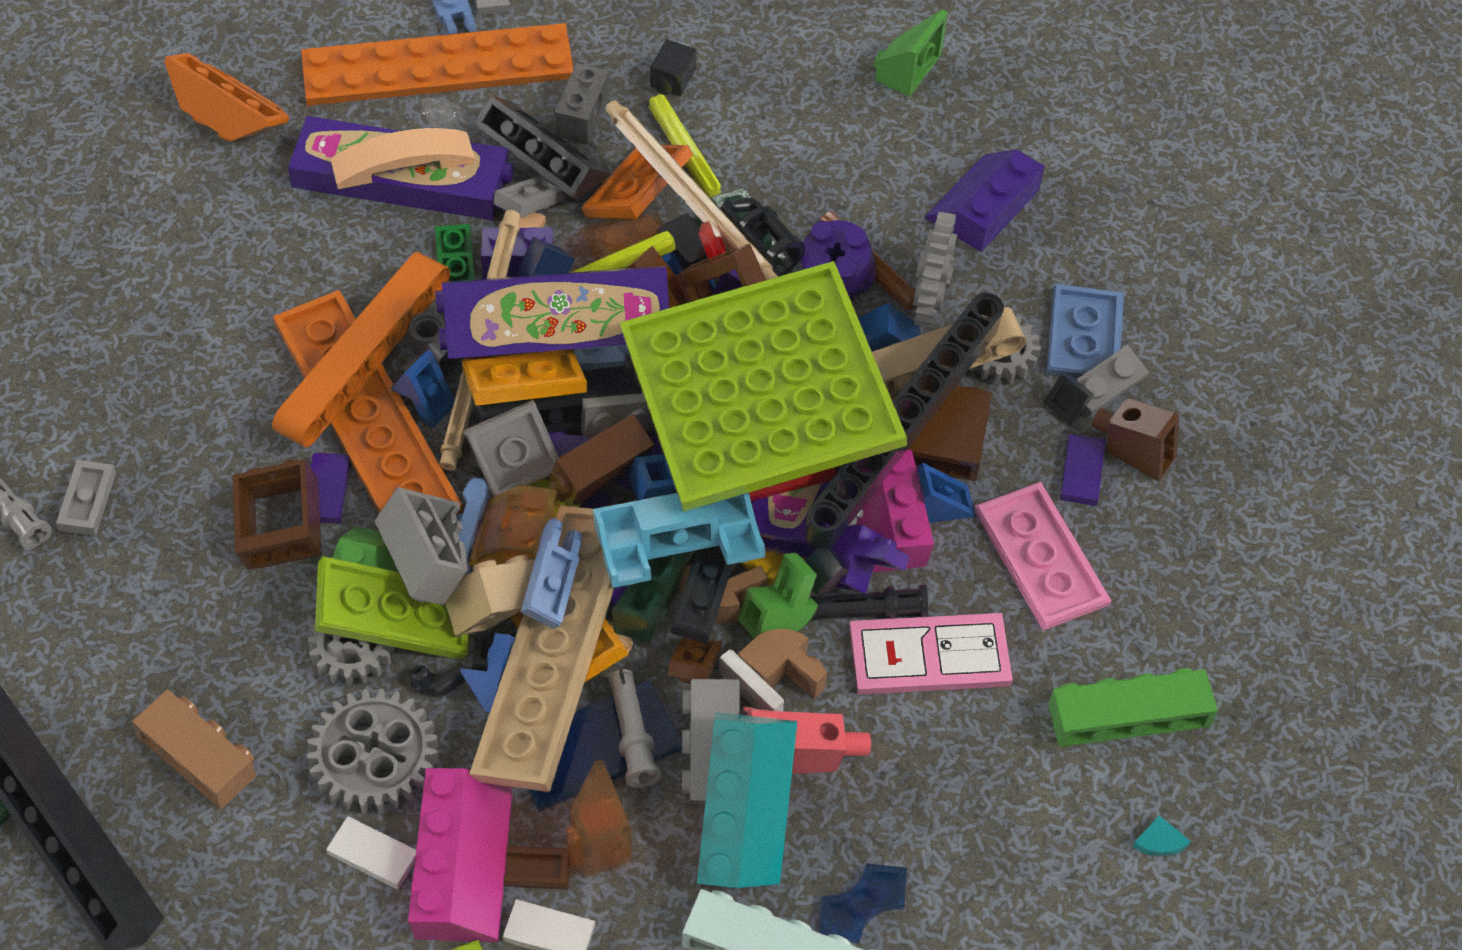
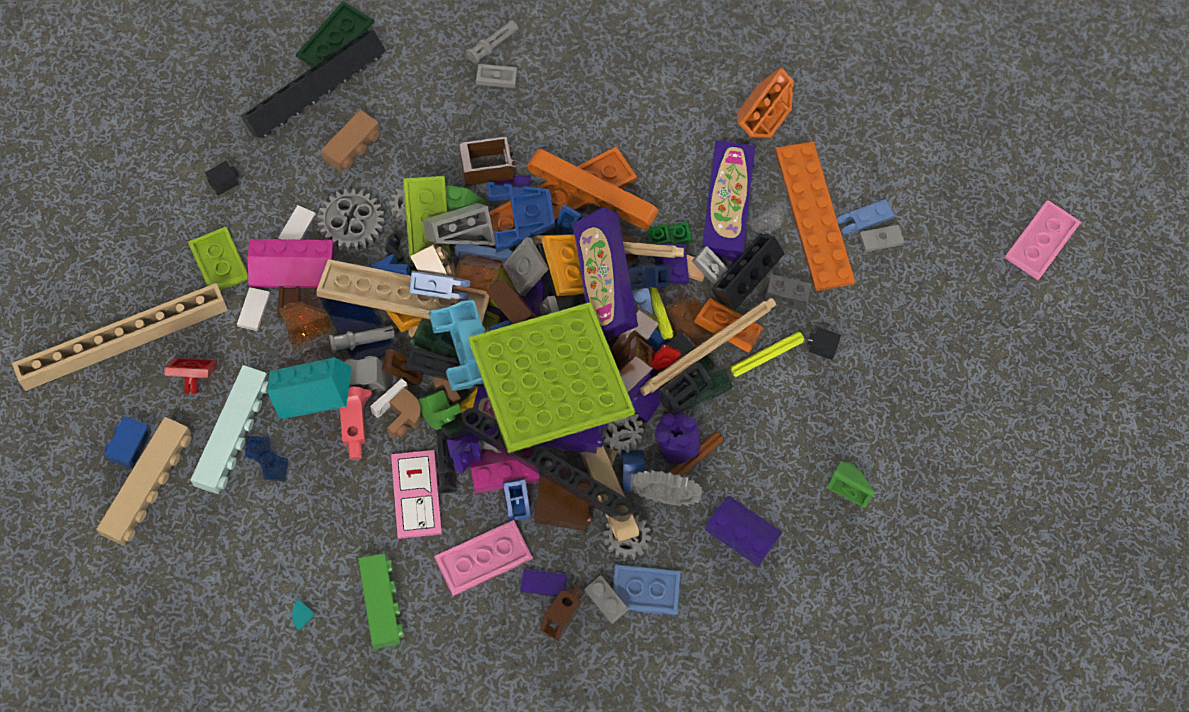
camera: 85 degrees right, 10 degrees up
(398, 441) = (530, 209): none -> blue wing
(401, 150) = (728, 196): light nougat slope -> none
(1068, 398) = (591, 574): black tile -> none

